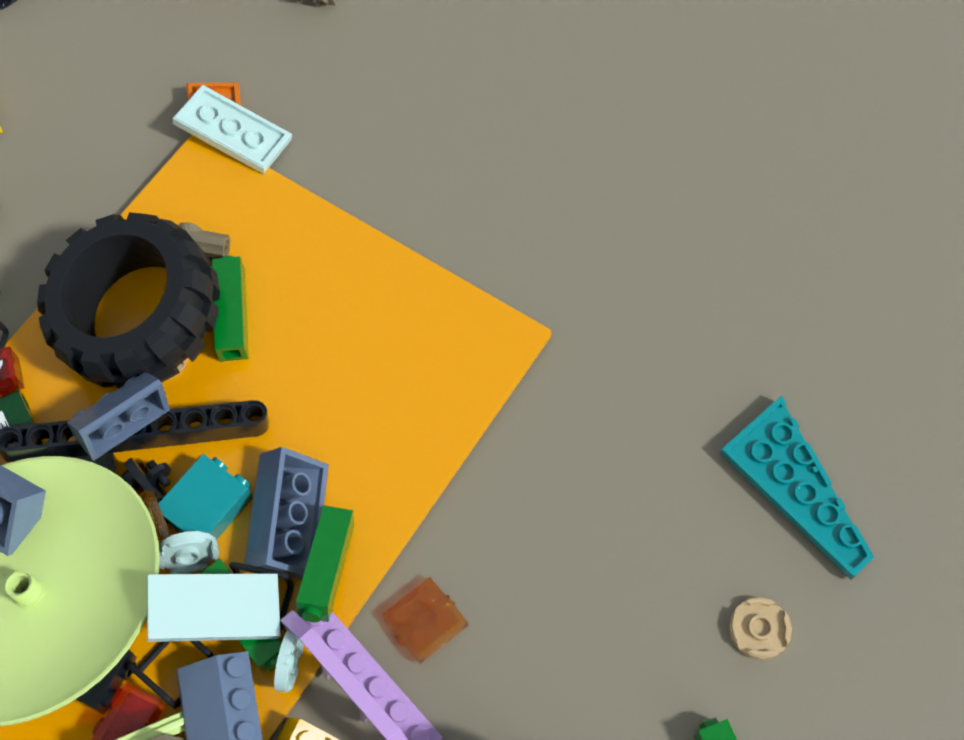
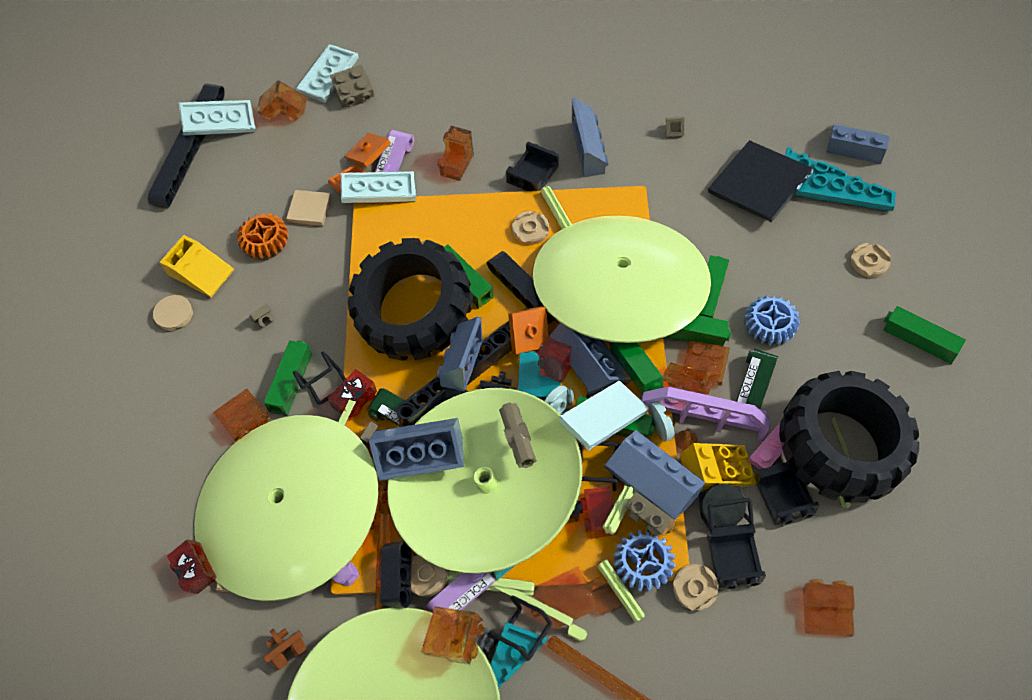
camera: 30 degrees left, 5 degrees down
(65, 116) = (273, 238): none -> orange gear
(86, 562) = (517, 435): none -> dark tan piece
(143, 106) = (309, 208): none -> tan tile
(217, 494) = (554, 359): none -> clear red brick
(235, 432) = (528, 329): none -> orange plate
(261, 73) = (367, 149): none -> orange plate
(286, 372) = (516, 280): none -> black beam
(299, 86) = (394, 153): none -> lavender door
(315, 704) = (685, 439): none -> clear orange tile
(359, 143) = (457, 153): none -> clear orange brick
(363, 296) = (530, 228): none -> tan tile
(370, 630) = (690, 378): none -> clear orange plate
(394, 487) = (621, 279): none -> yellowish green dish
(414, 291) = (555, 207): none -> yellowish green axle
(435, 220) = (533, 168): none -> black panel
(440, 561) = (704, 330): none -> green brick
(467, 686) = (757, 377): none -> dark green door
(511, 527) = (717, 268): none -> green brick
(530, 221) = (588, 139): none -> sand blue slope
(543, 611) = (761, 323): none -> light blue gear
(658, 273) = (674, 126): none -> dark tan tile
(704, 421) = (760, 180): none -> black tile
(887, 450) = (858, 143): none -> sand blue slope

